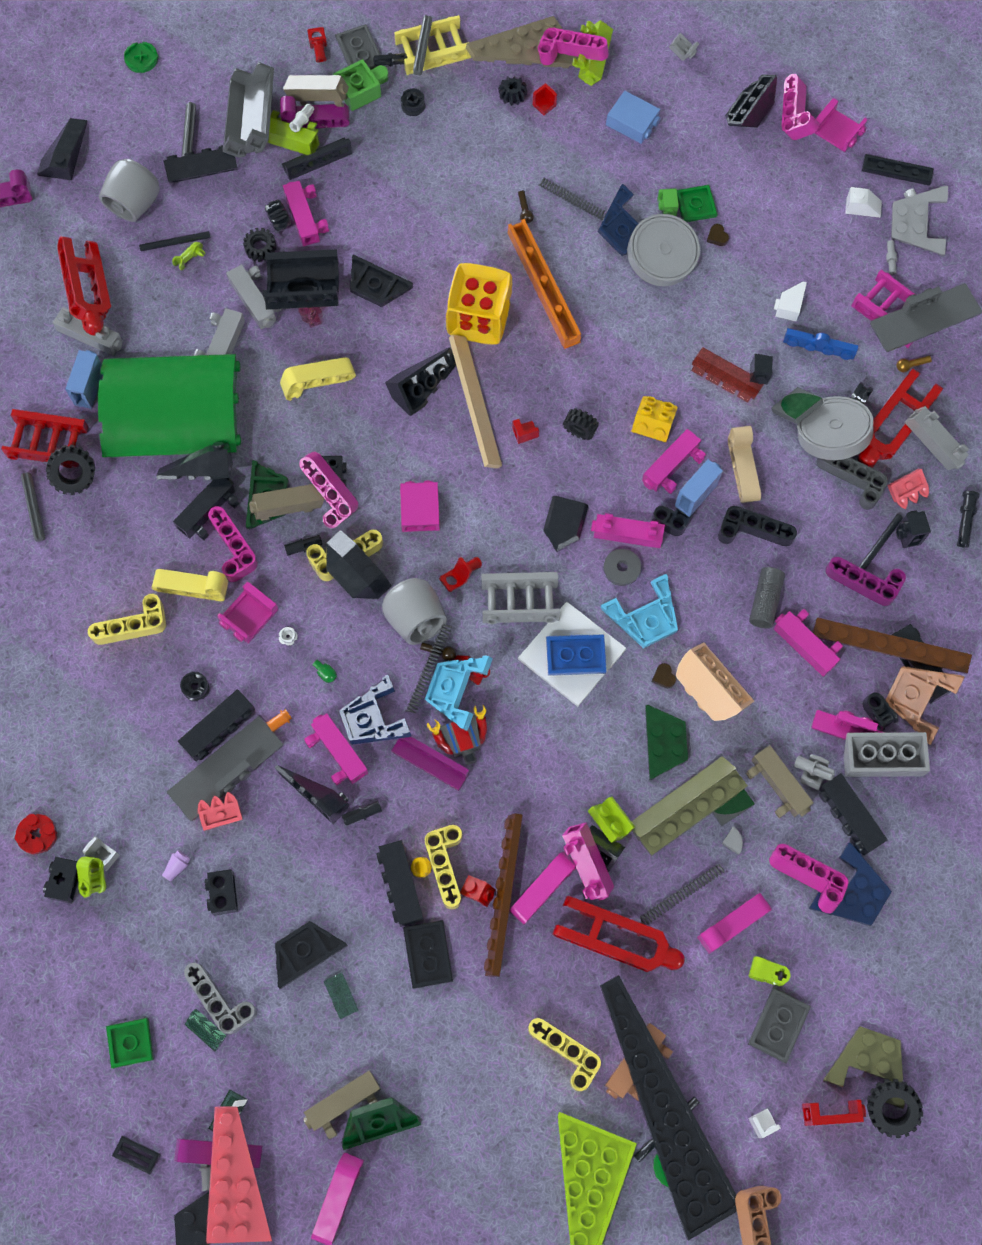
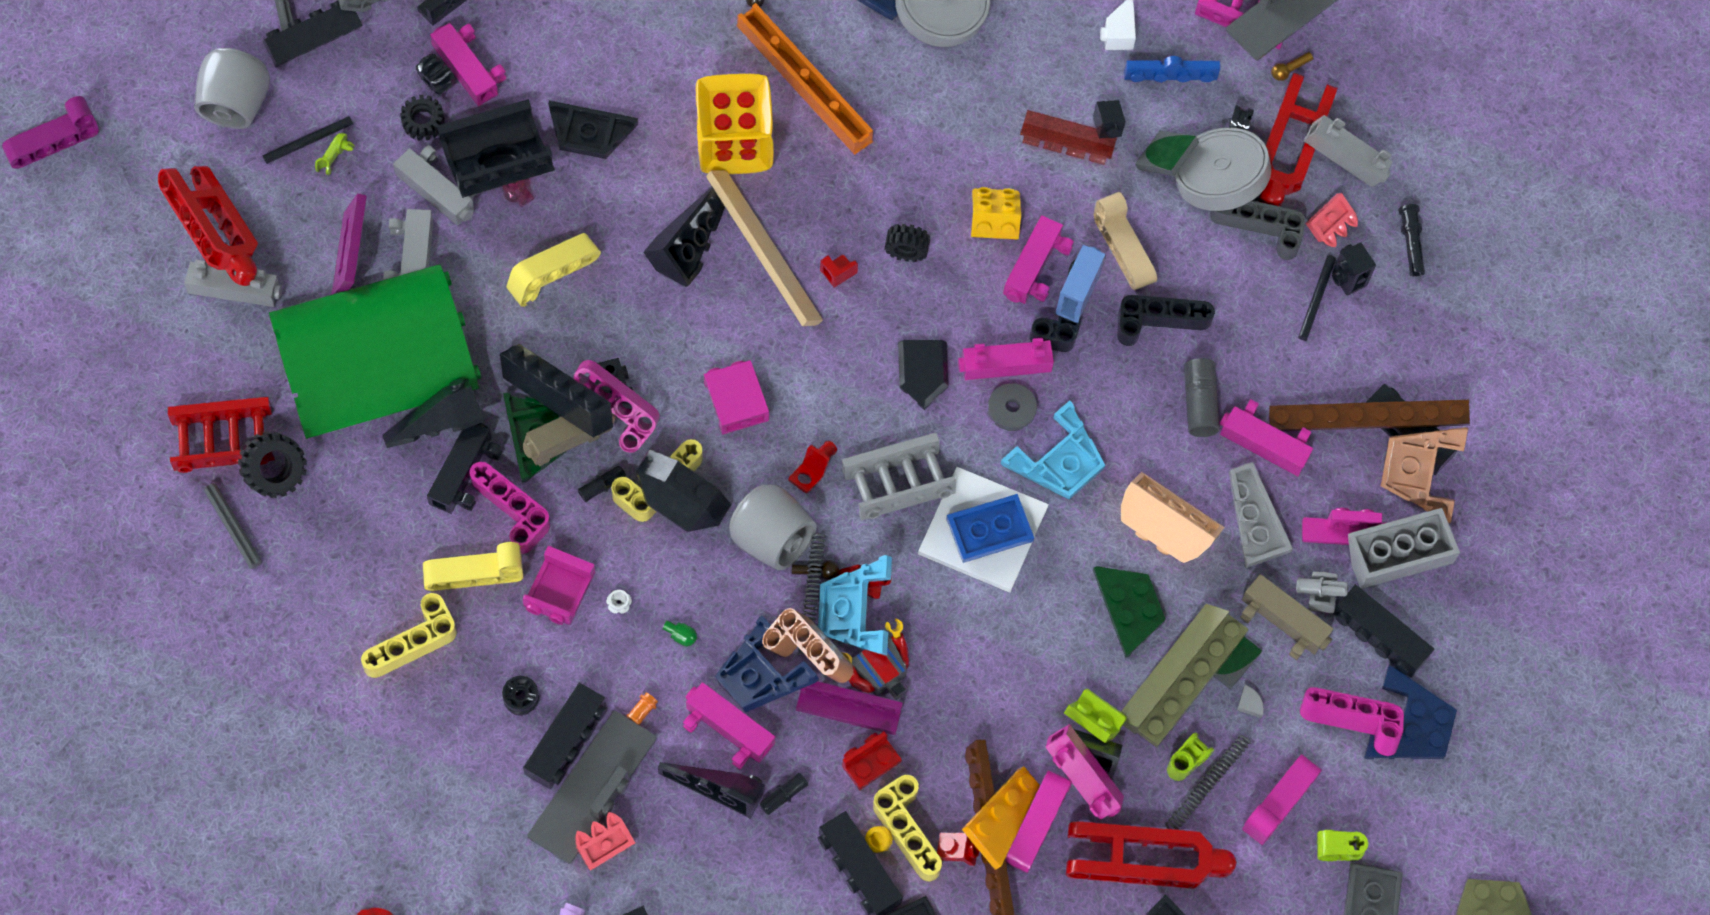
camera: 20 degrees left, 5 degrees down
(63, 153) = (120, 59): black wedge -> none
(84, 379) = (252, 344): medium blue brick -> none
(176, 323) = (349, 244): none -> magenta piece
(286, 468) = (556, 390): none -> black brick
(409, 695) = (797, 630): none -> nougat beam
(434, 805) = (870, 760): none -> red bracket
(513, 879) = (1001, 817): none -> light orange wing
(663, 676) = (1105, 527): dark brown tile -> none
(676, 869) = (1191, 754): none -> lime piece
(781, 705) = (1257, 520): none -> light grey wing
(862, 577) = (1310, 343): magenta beam -> none
(880, 712) = (1379, 499): black piece -> none

